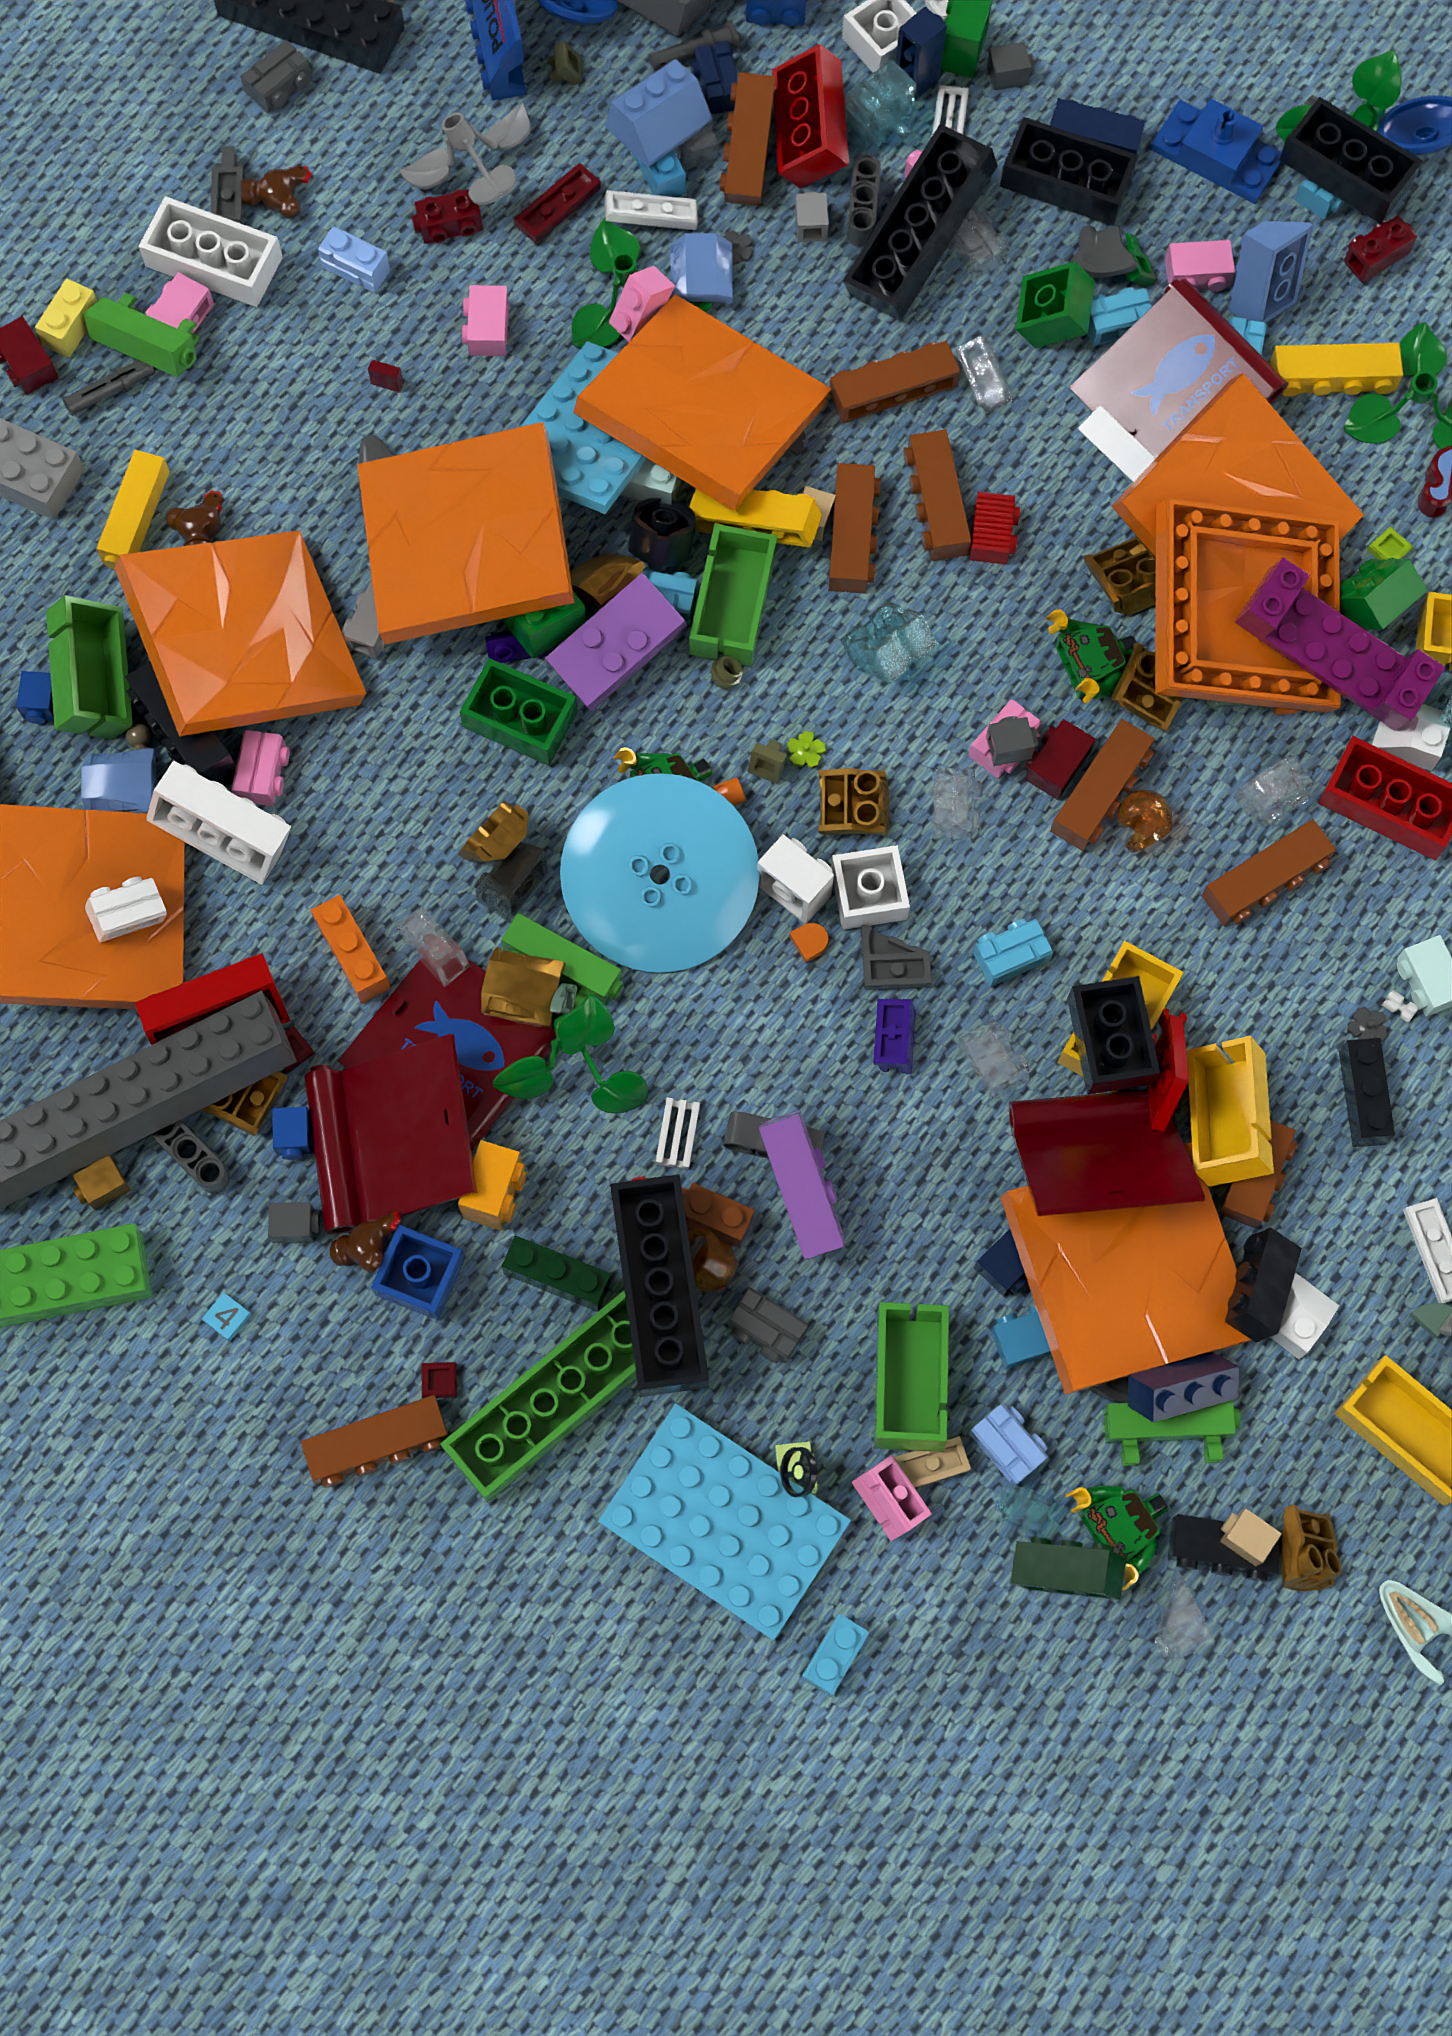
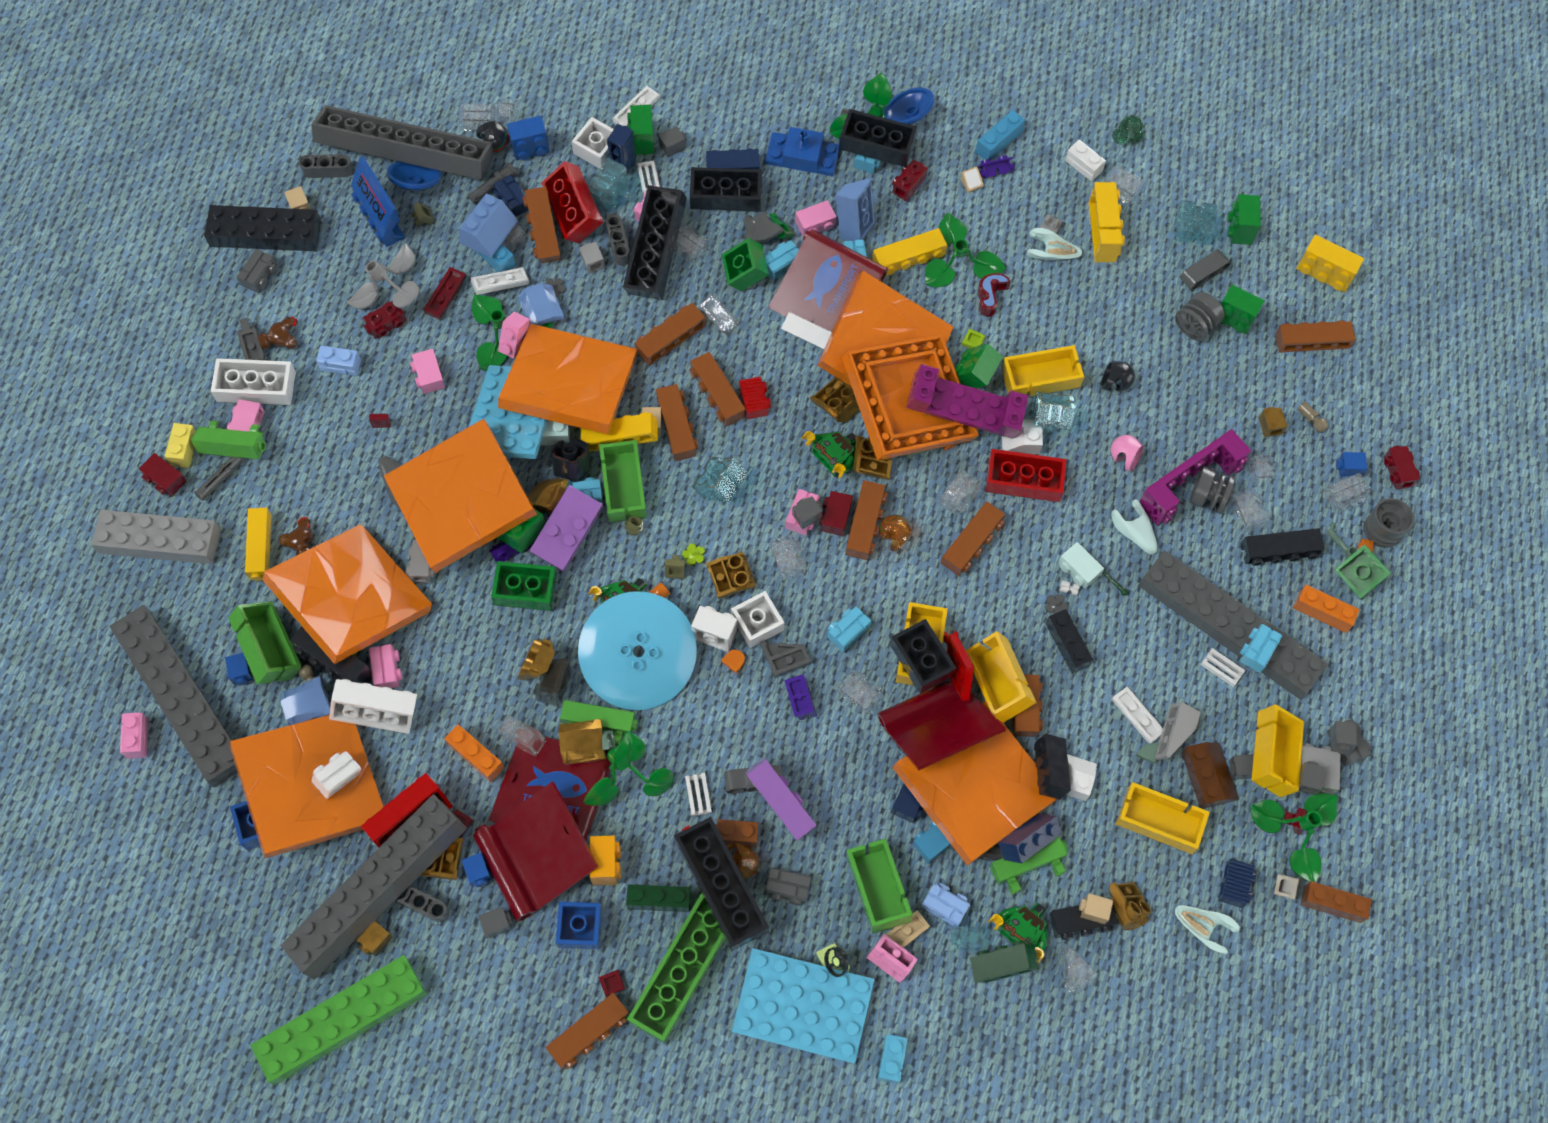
camera: 20 degrees left, 5 degrees down
(226, 1316) = (475, 990): medium azure tile -> none
(365, 1243) = (542, 919): reddish brown animal -> none

